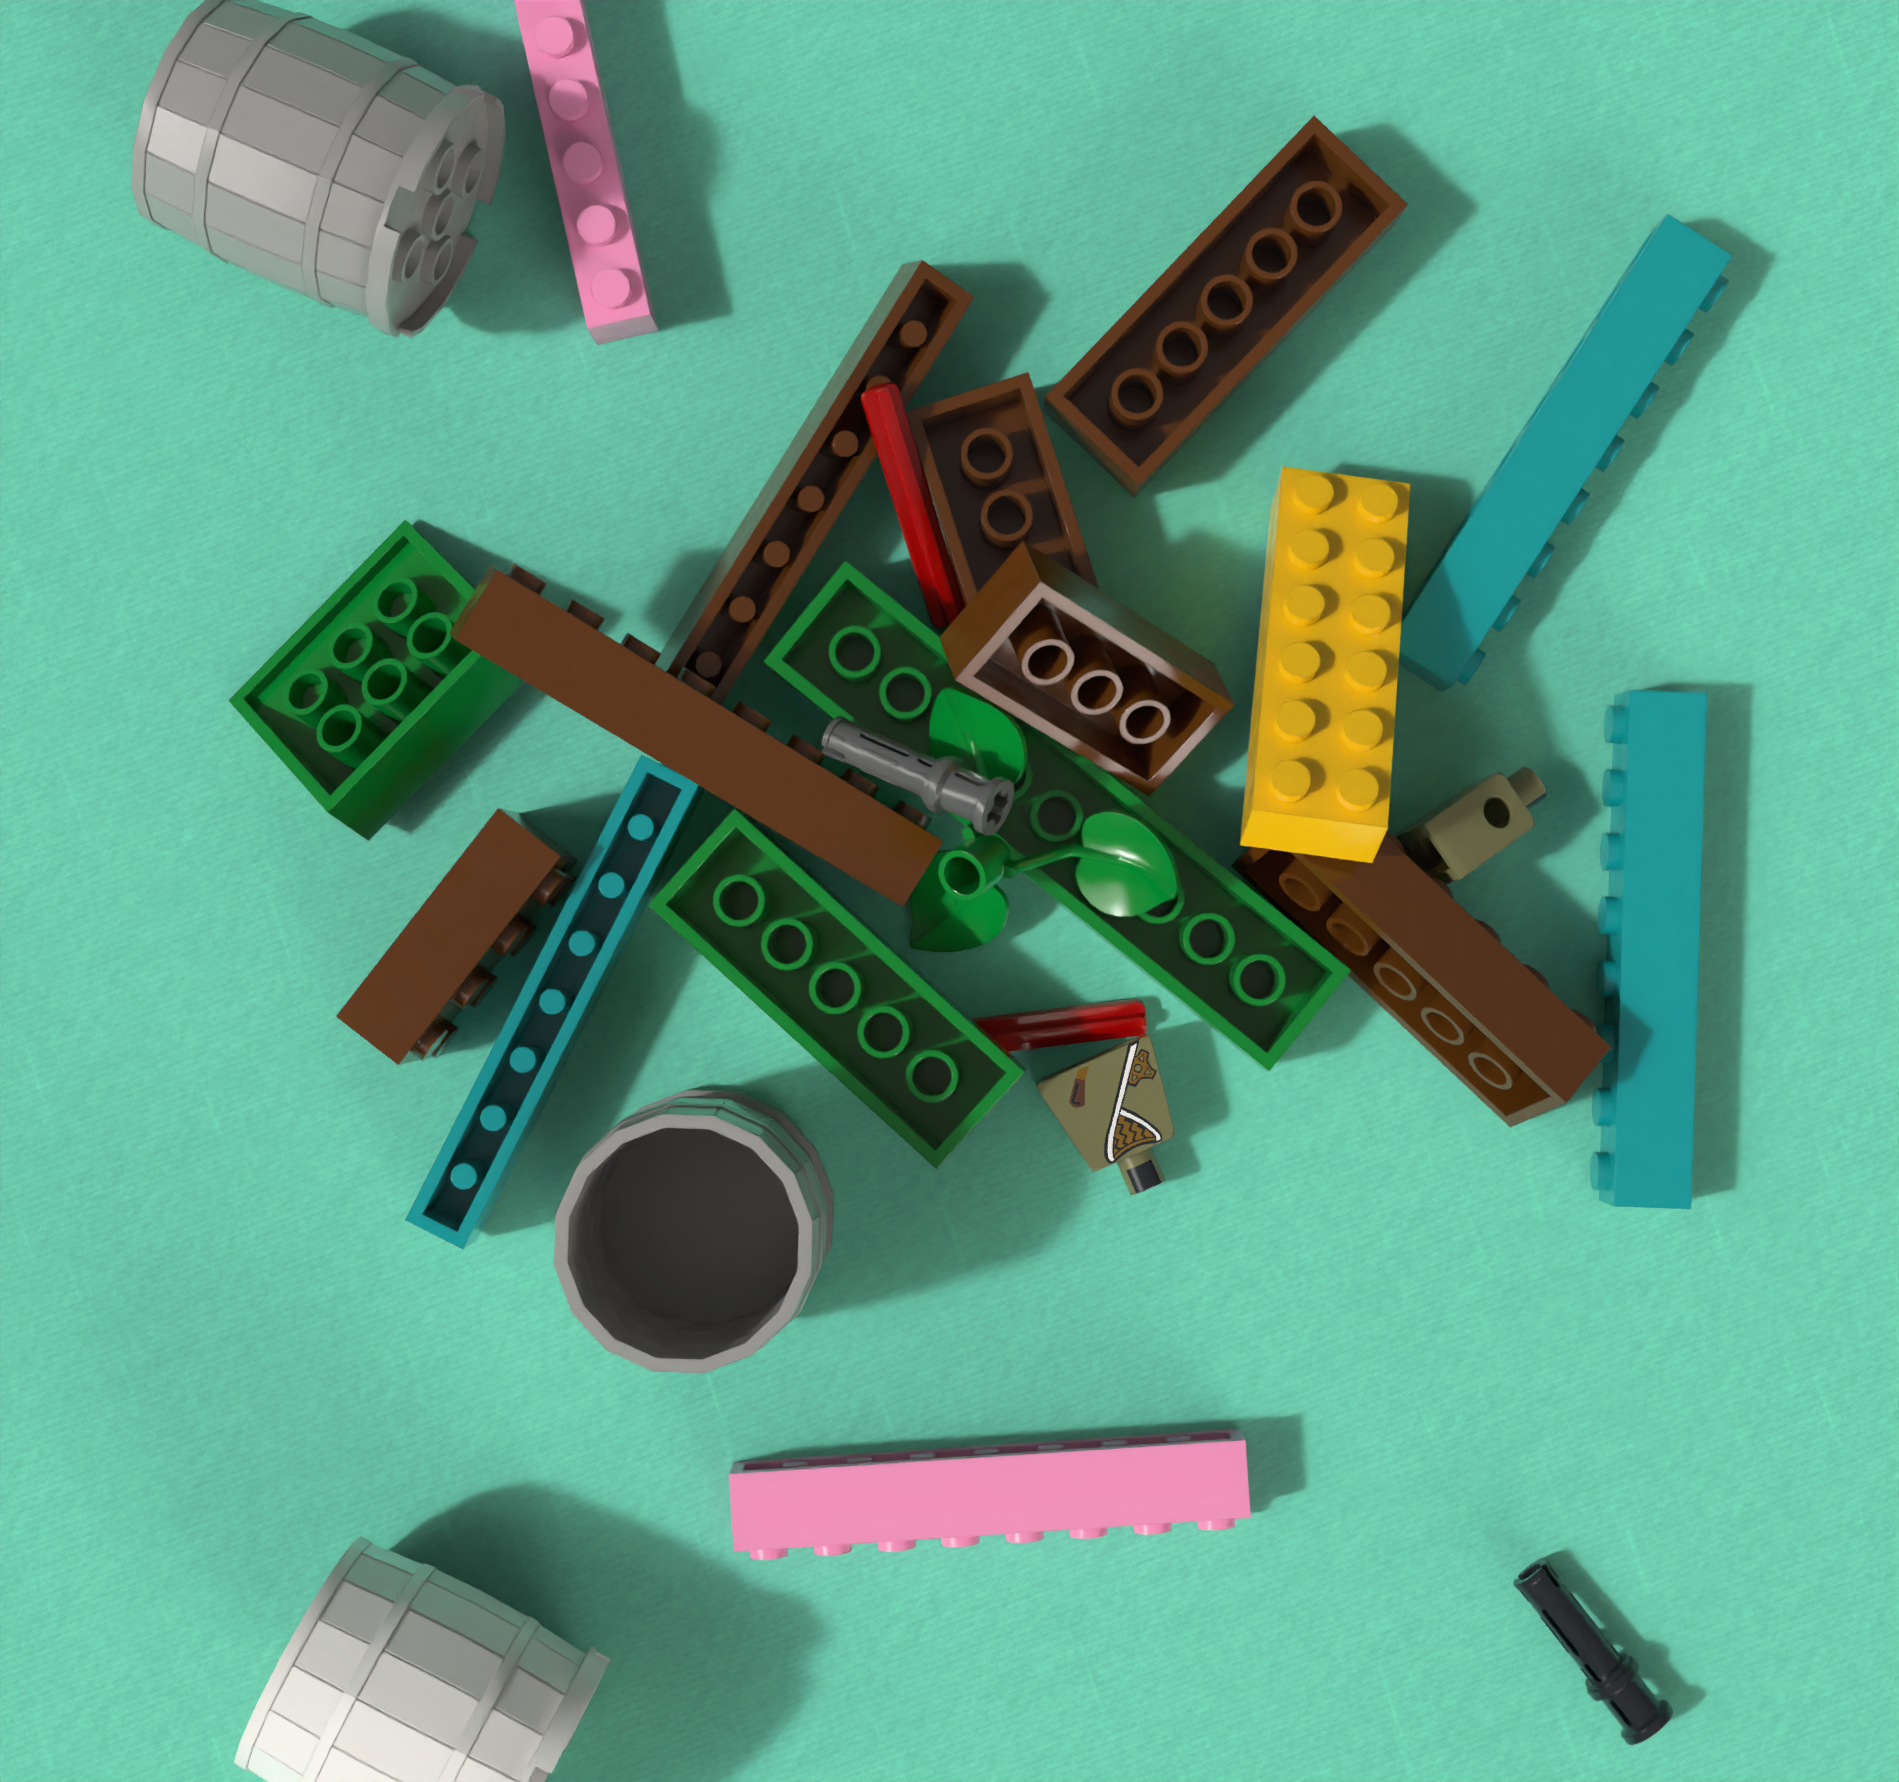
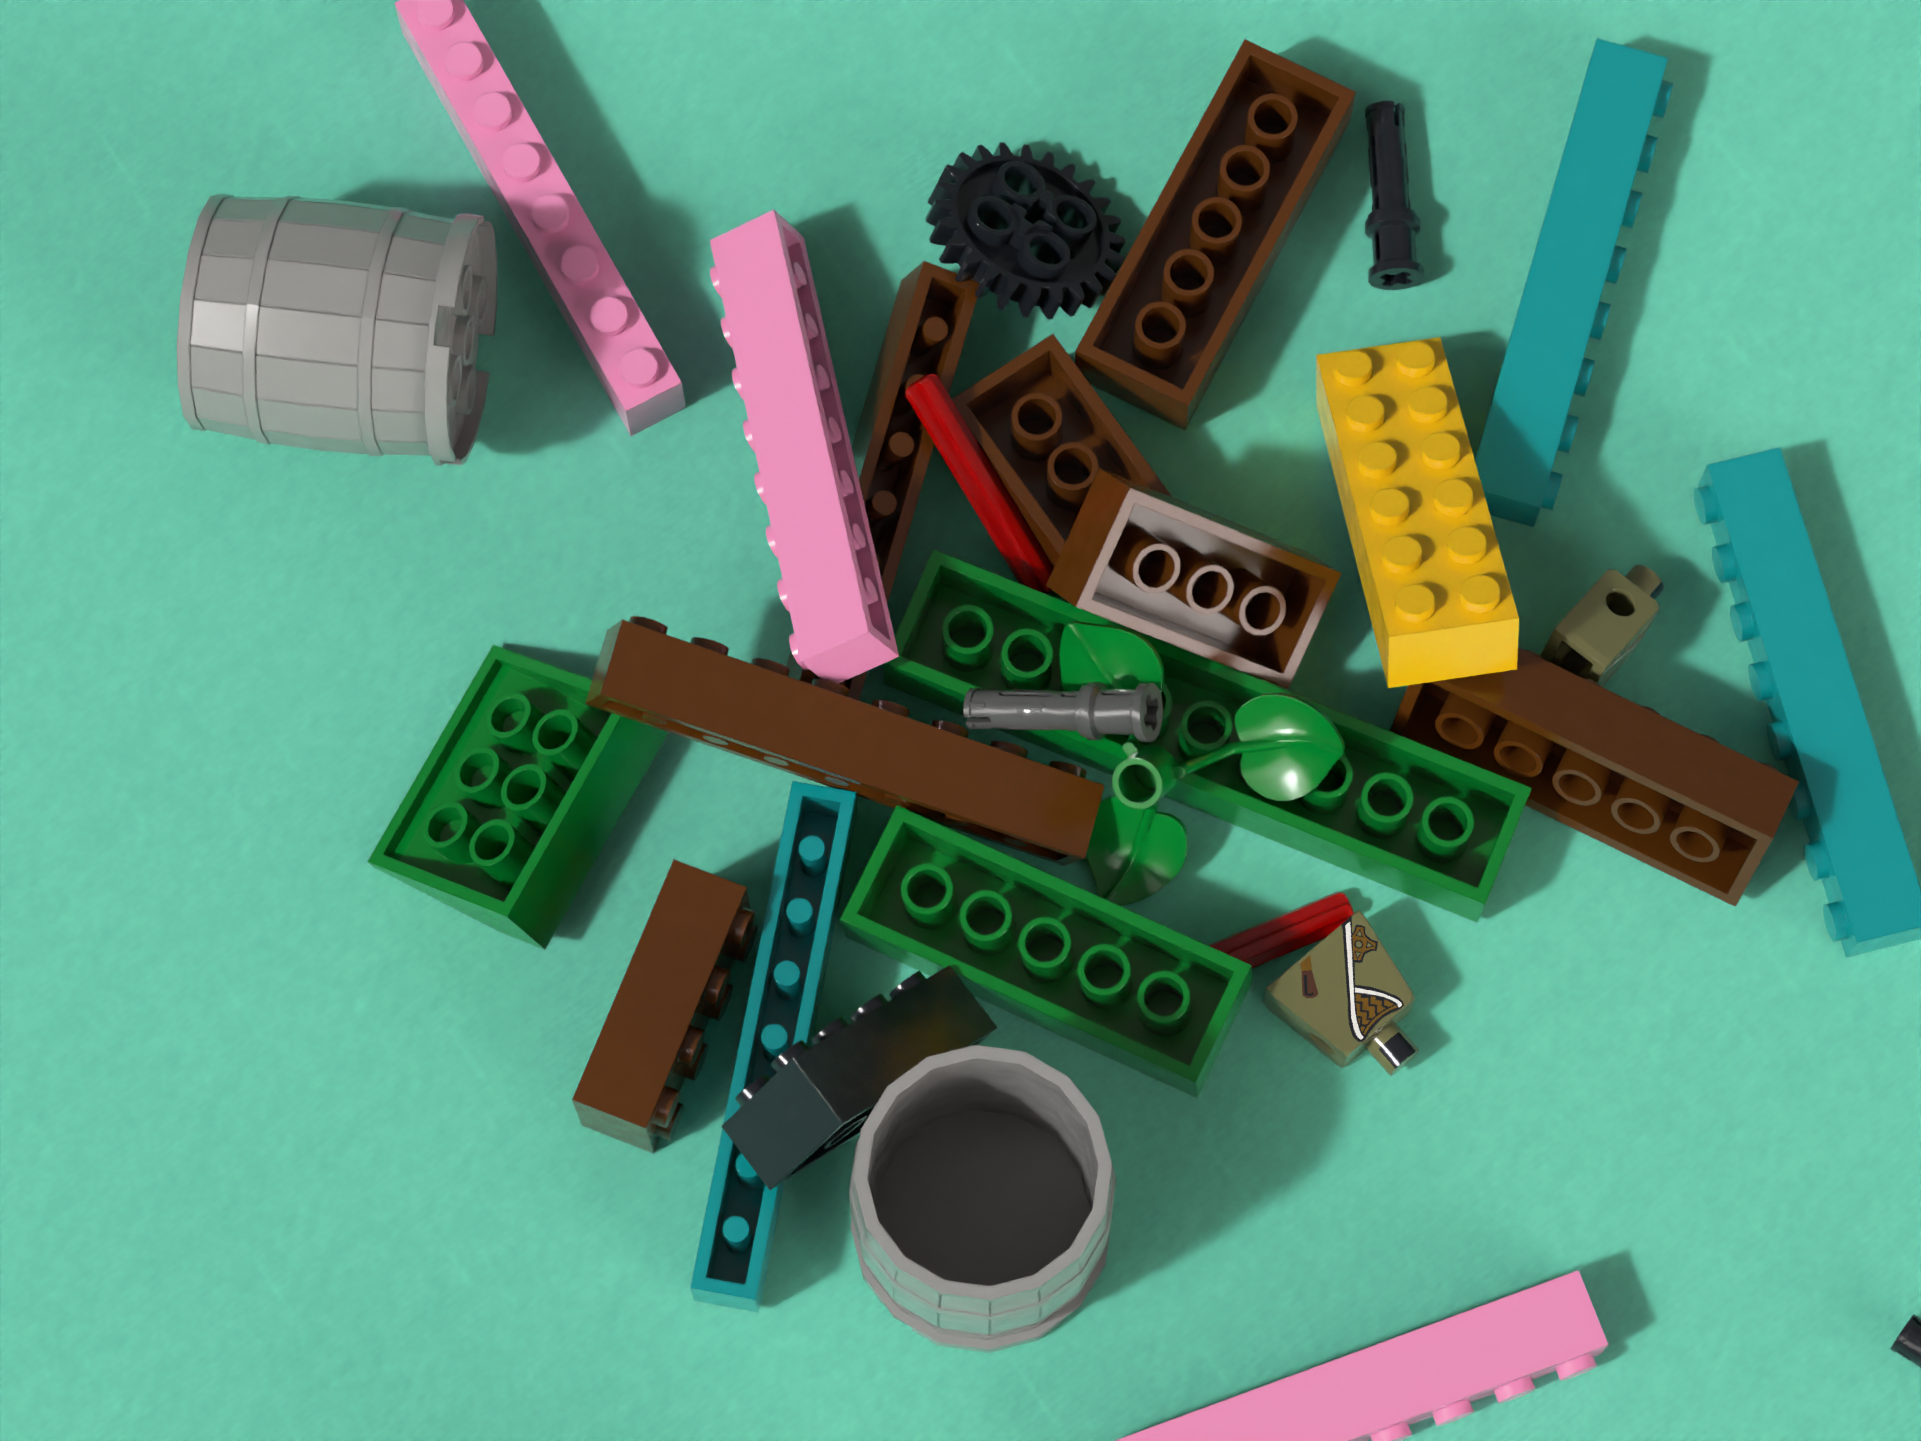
camera: 20 degrees left, 15 degrees down
(611, 1073) = (831, 1088): none -> black brick
(744, 422) = (802, 450): none -> bright pink brick
(1049, 243) = (1025, 230): none -> black gear
(1403, 342) = (1392, 221): none -> black pin

